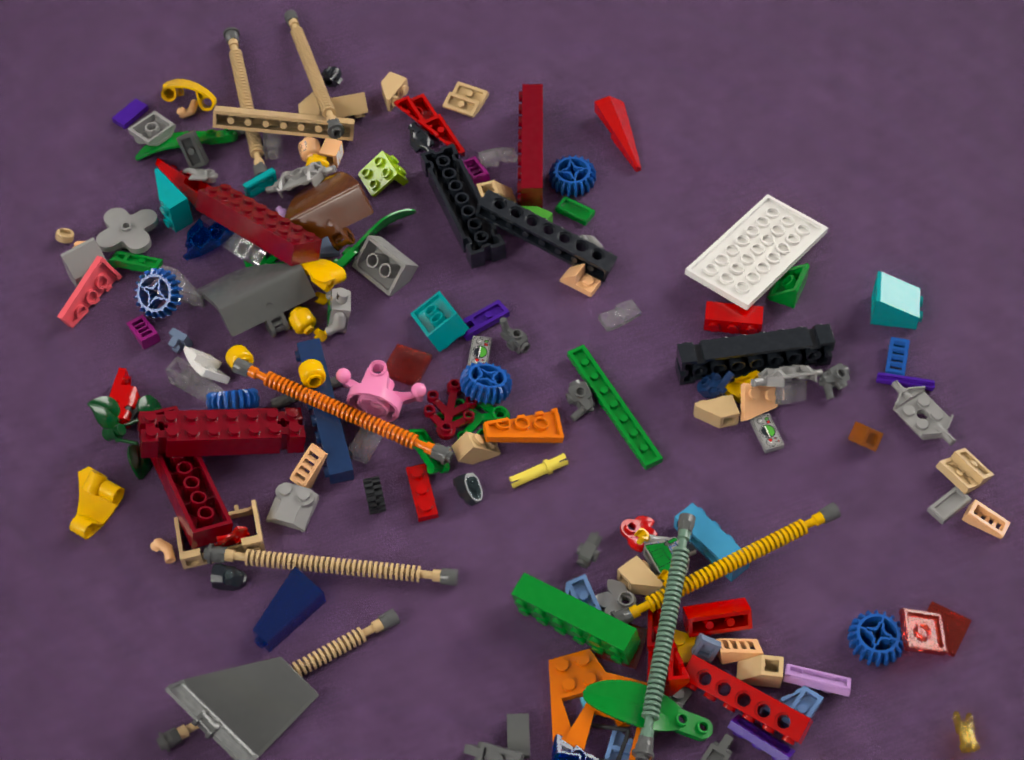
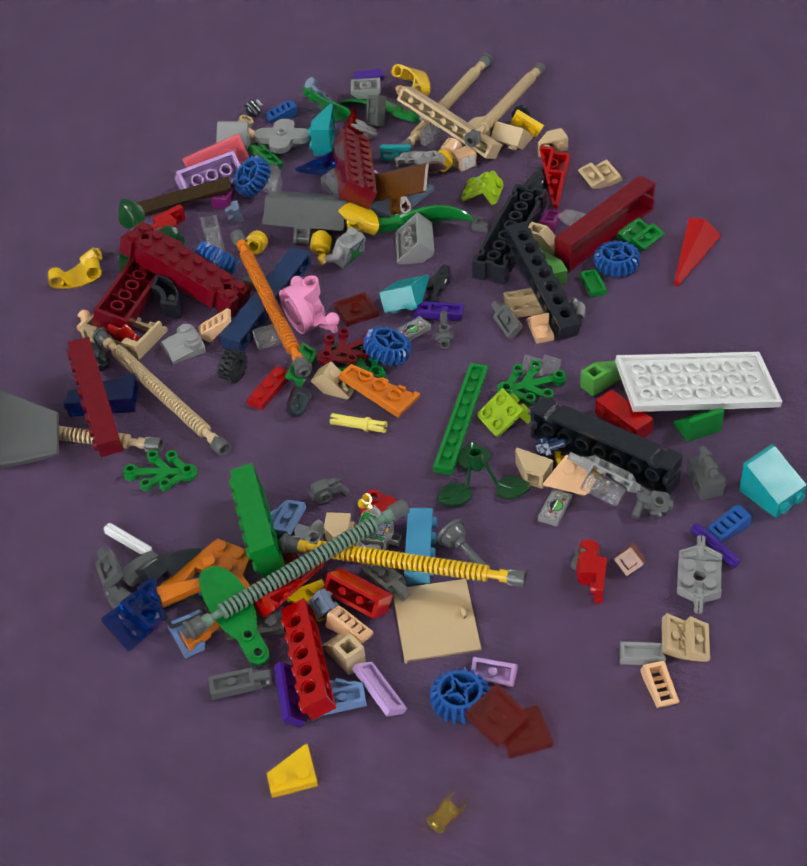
camera: 45 degrees right, 10 degrees down
(57, 216) = (253, 108): none -> black gear
(91, 193) = (283, 111): none -> blue slope
(104, 157) = (313, 84): none -> sand blue piece
(107, 319) = (209, 170): none -> lavender slope
(109, 356) = (186, 196): none -> dark brown tile
(137, 173) = (340, 111): none -> green plant
(205, 365) = (224, 227): white slope -> none
(229, 469) = (168, 296): none -> black brick
(293, 615) = (94, 396): none -> dark red brick
(312, 373) = (275, 266): yellow head -> none
(349, 85) = (526, 122): none -> yellow wing
(422, 213) = (479, 225): none -> dark grey tile
(426, 637) = (183, 472): none -> green plant
(451, 291) = (438, 282): none -> black animal
(474, 721) = (126, 539): none -> white axle
(540, 266) = (522, 302): none -> tan slope
(540, 714) = (166, 564): none -> black slope
(548, 291) = (506, 319): none -> dark grey hinge
(562, 141) = (640, 234): none -> green slope
(579, 395) = (444, 396): dark grey piece -> none
(632, 339) = (529, 384): none -> green plant
(642, 379) = (503, 412): none -> lime bracket
(681, 294) = (599, 377): none -> bright green slope
(686, 478) = (475, 459): none -> dark green plant
(723, 588) = (387, 579): none -> dark grey hinge
(731, 514) = (454, 536): none -> dark grey piece
(787, 593) = (434, 621): none -> tan piece
(846, 328) = (706, 475): none -> dark grey brick
(851, 465) = (590, 567): none -> red plate
(873, 598) = (495, 671): none -> lavender slope

